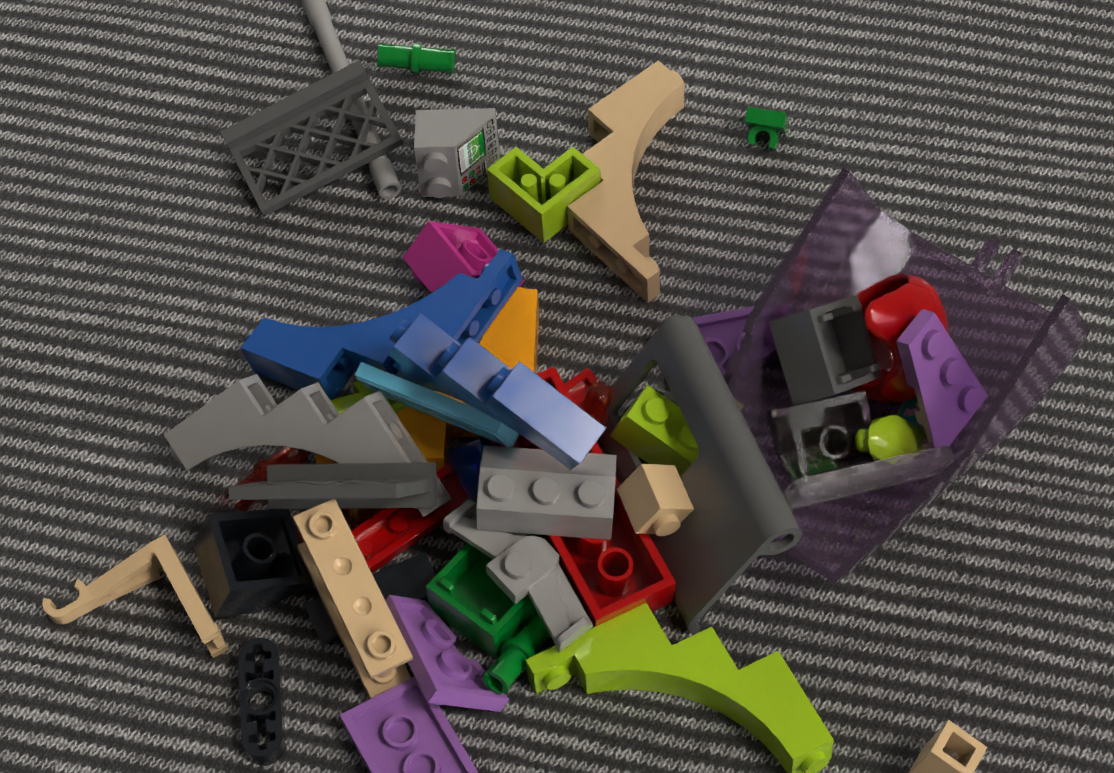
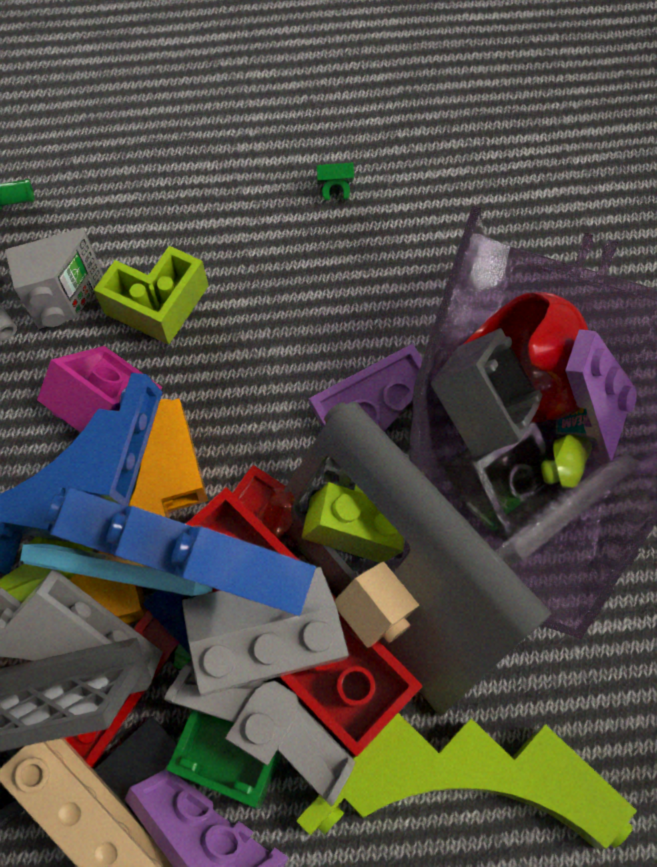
camera: 20 degrees left, 10 degrees up
(514, 655) = (282, 810): green pin -> none
(607, 214) = (220, 301): tan arch -> none

